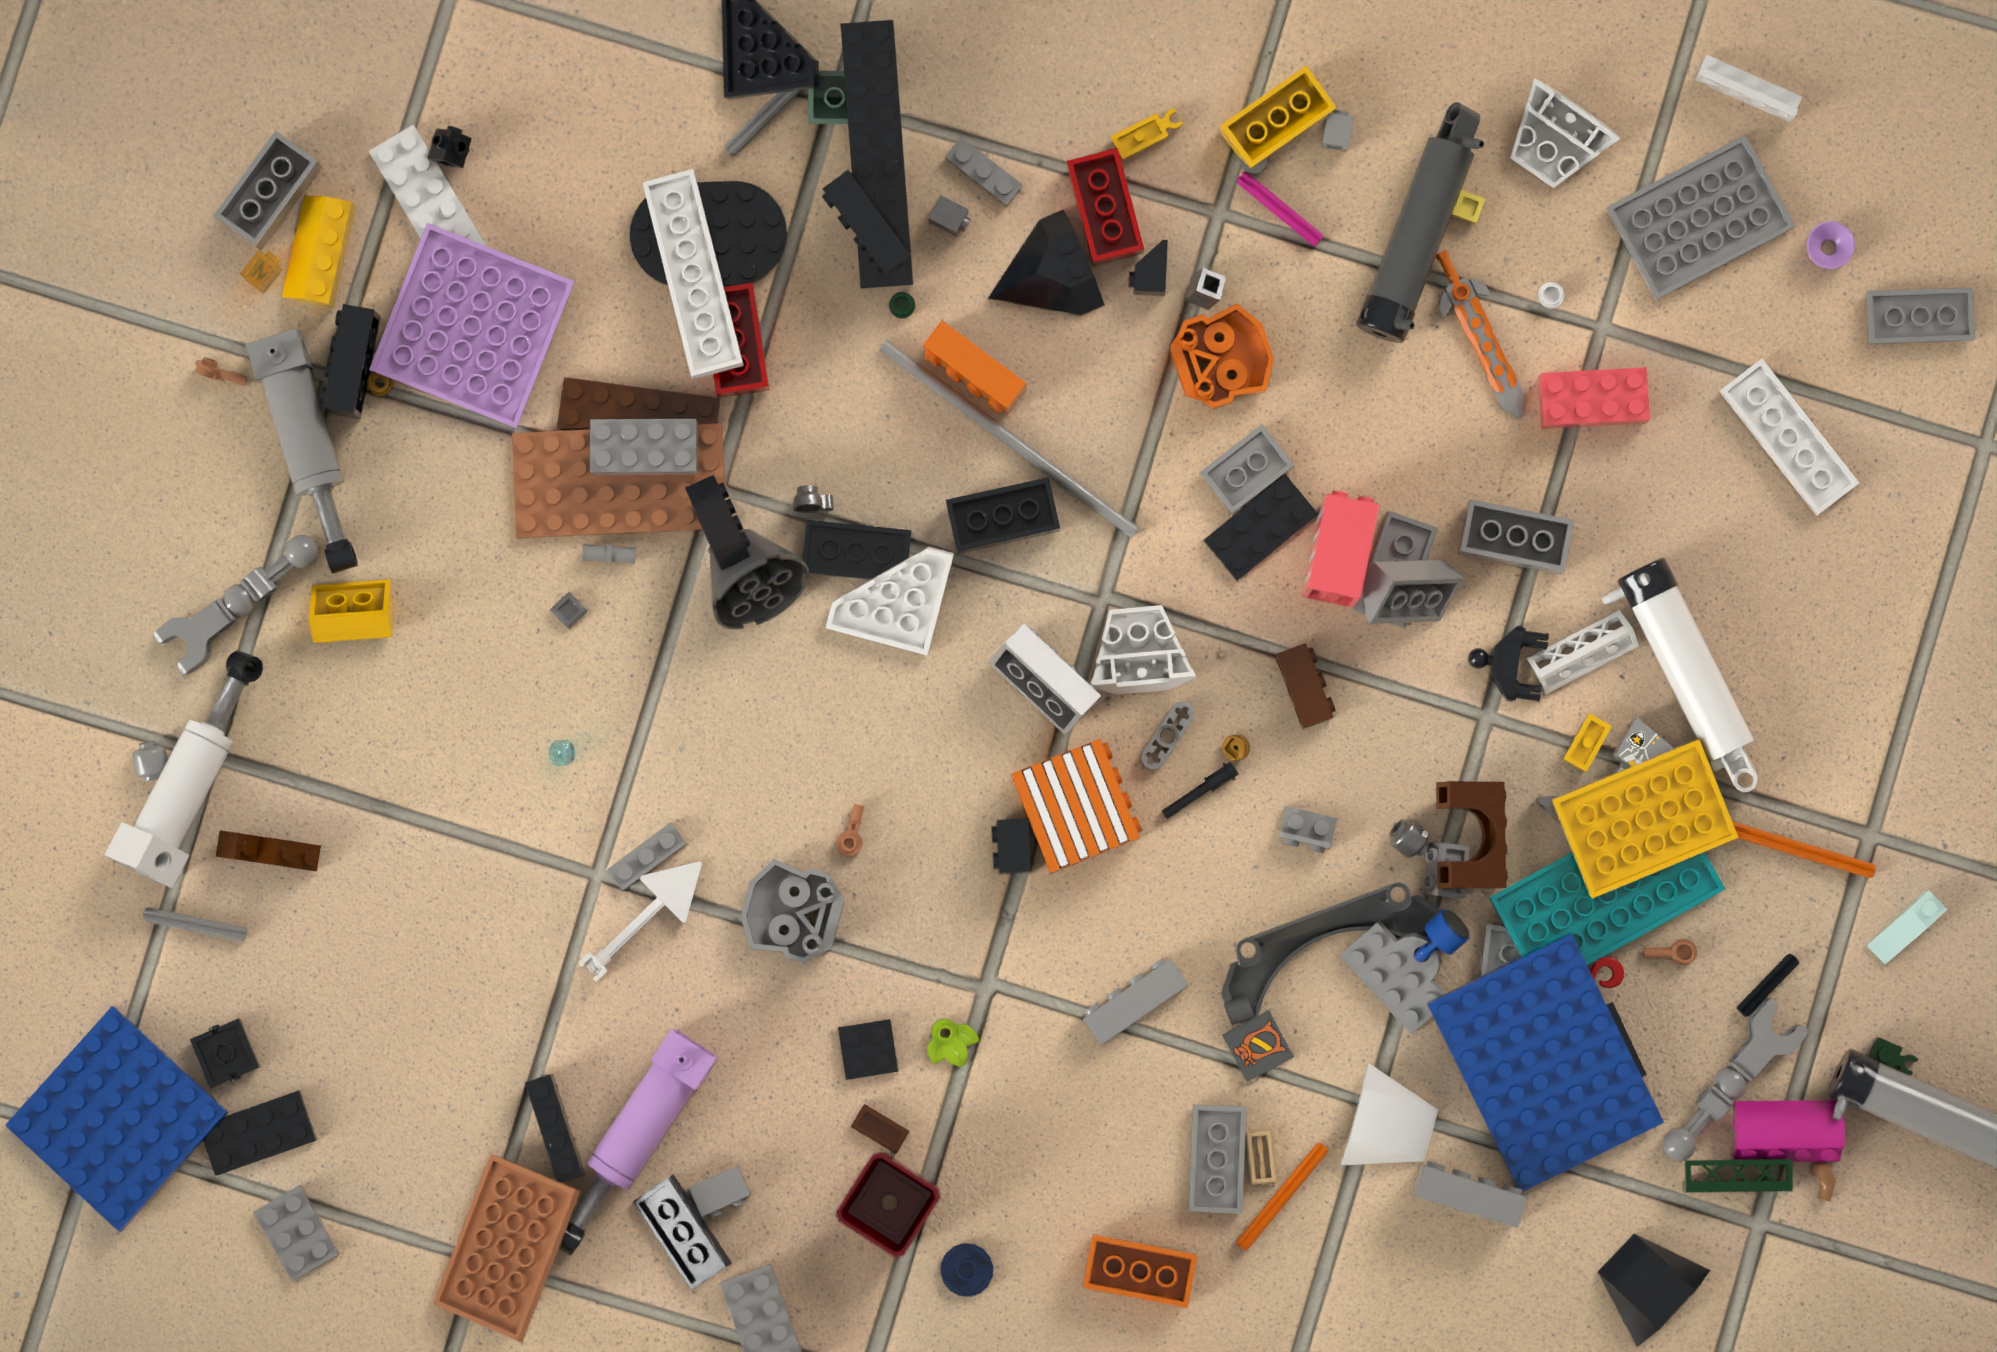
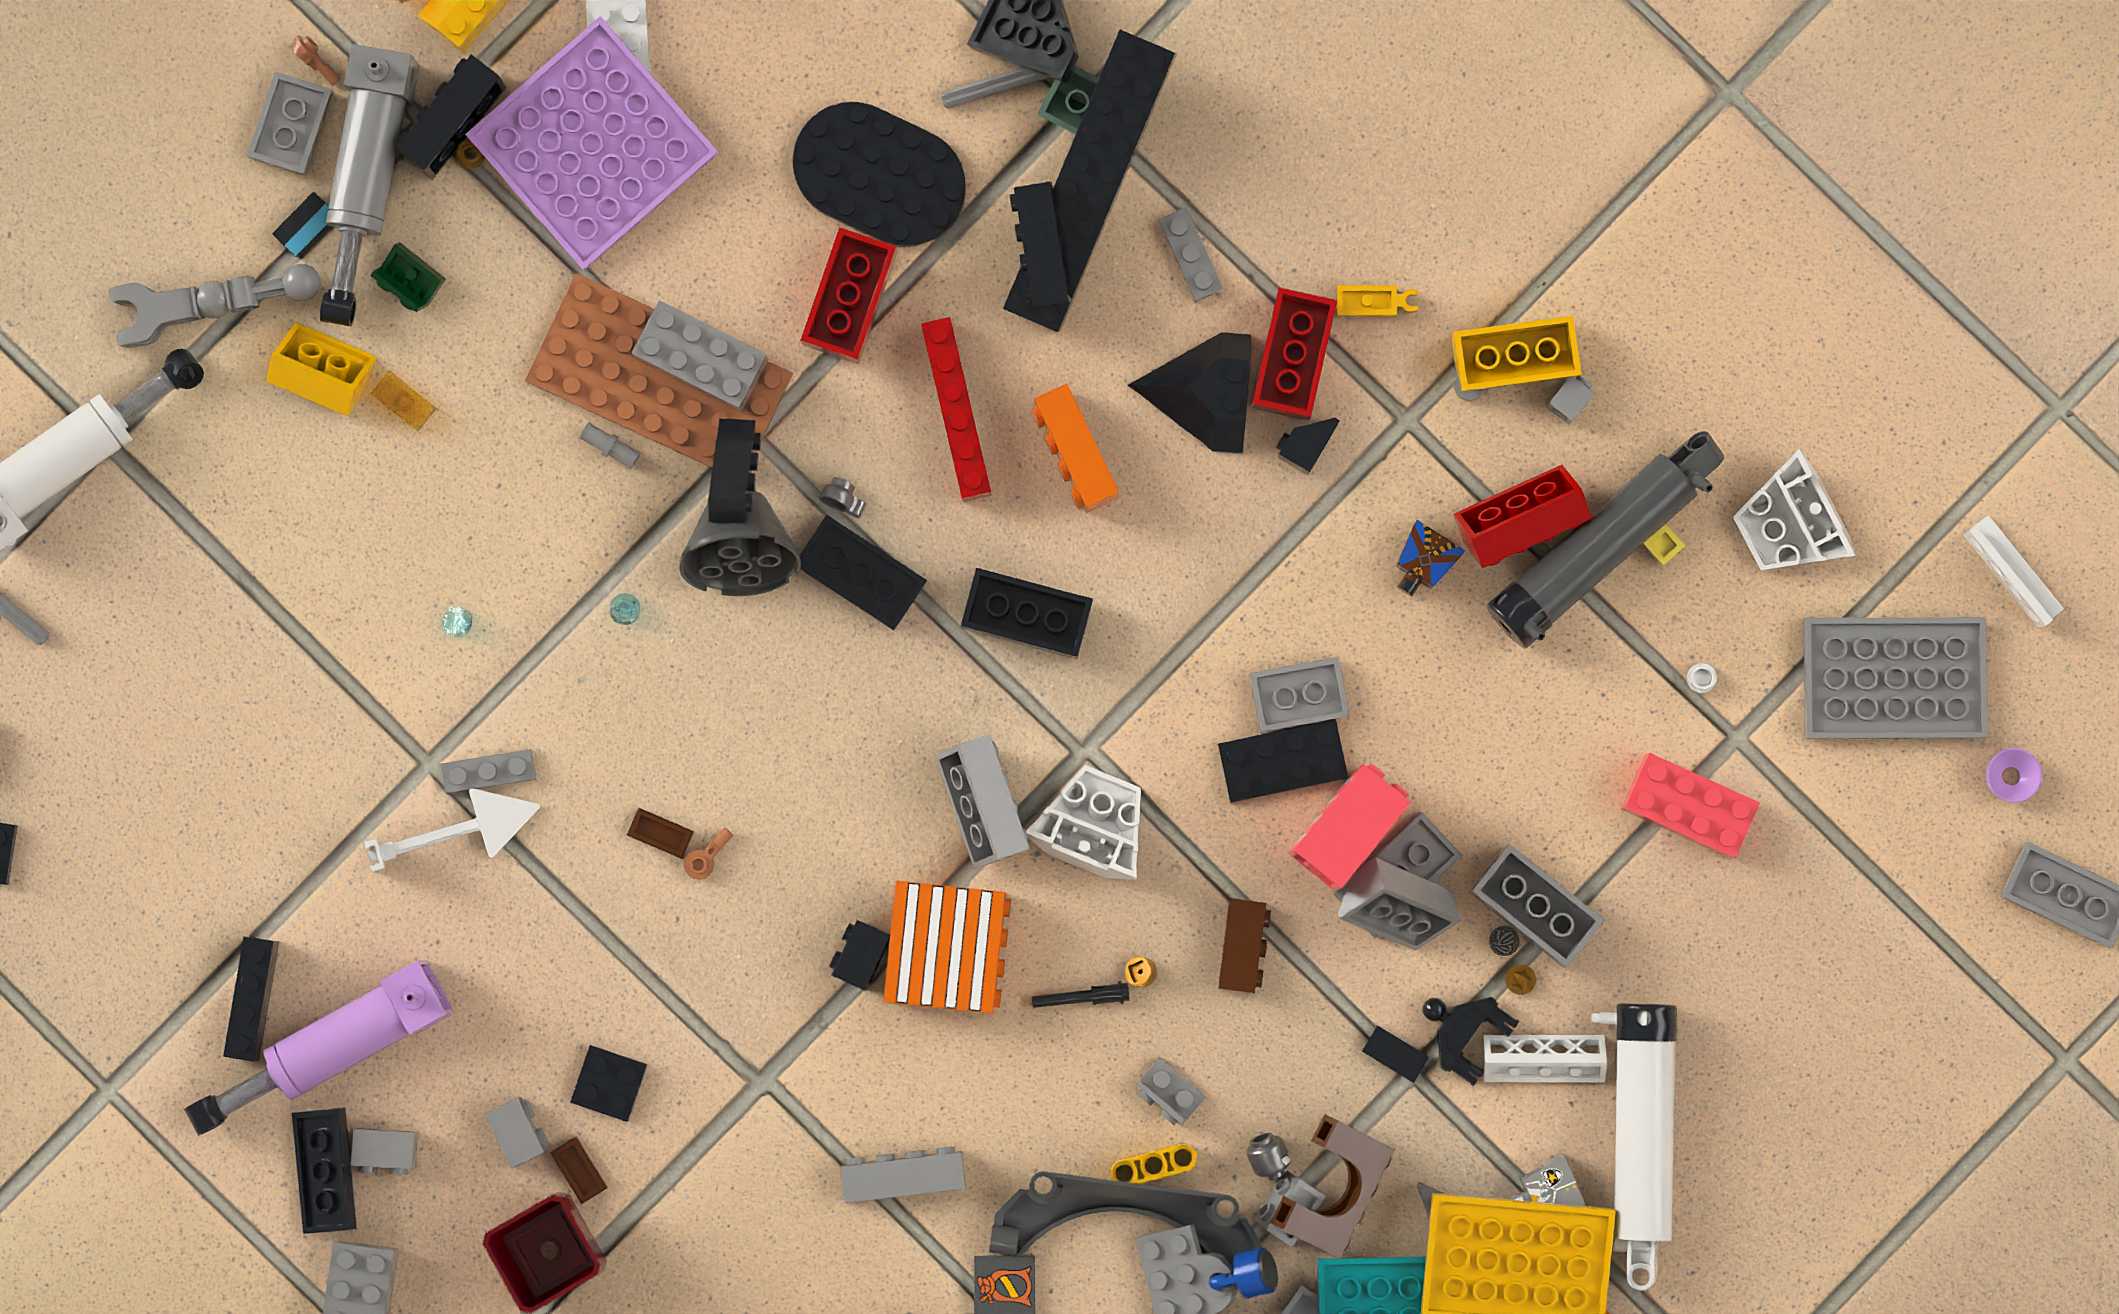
camera: 25 degrees right, 0 degrees up
(149, 760) = (39, 414): light grey head -> none
(226, 432) = (290, 123): none -> light grey plate
(268, 850) = (110, 567): reddish brown arch -> none
(278, 506) = (303, 225): none -> slope
(383, 505) = (408, 278): none -> dark green bracket
(429, 602) = (403, 401): none -> clear yellow plate
(506, 1247) = (138, 1094): nougat plate -> none
(569, 610) = (540, 481): flat silver tile -> none
(600, 400) = (684, 288): reddish brown wing -> none
(687, 675) = (624, 609): none -> clear light blue tile
(692, 274) = (839, 206): white plate -> none
(771, 906) = (586, 887): light grey brick -> none
(806, 834) = (660, 833): none -> reddish brown tile
(817, 1124) = (517, 1132): none -> light grey brick
(865, 385) = (956, 409): none -> red arch
(898, 604) = (873, 647): white plate -> none
(902, 305) = (1037, 347): dark green plate -> none
(949, 216) = (1132, 282): flat silver brick -> none
(953, 1045) = (696, 1124): lime plate -> none
(1009, 438) = (1075, 539): light grey piece -> none
(1171, 715) = (1093, 904): light grey beam -> none
(1205, 288) = (1352, 489): flat silver brick -> none
(1242, 351) = (1357, 572): orange brick -> none
(1279, 208) = (1470, 444): dark pink axle -> none
(1289, 312) = (1425, 558): none -> torso
(1330, 879) = (1168, 1168): none -> yellow beam
(1348, 241) = (1522, 516): none -> red brick
(1466, 708) = (1395, 1054): none -> black tile
(1480, 334) = (1608, 680): sword -> none
(1504, 577) = (1504, 941): none -> clear smoke tile
(1532, 600) = (1520, 979): none -> pearl gold tile
(1587, 742) = (1500, 1153): yellow plate -> none
(1789, 437) = (1869, 949): white plate -> none

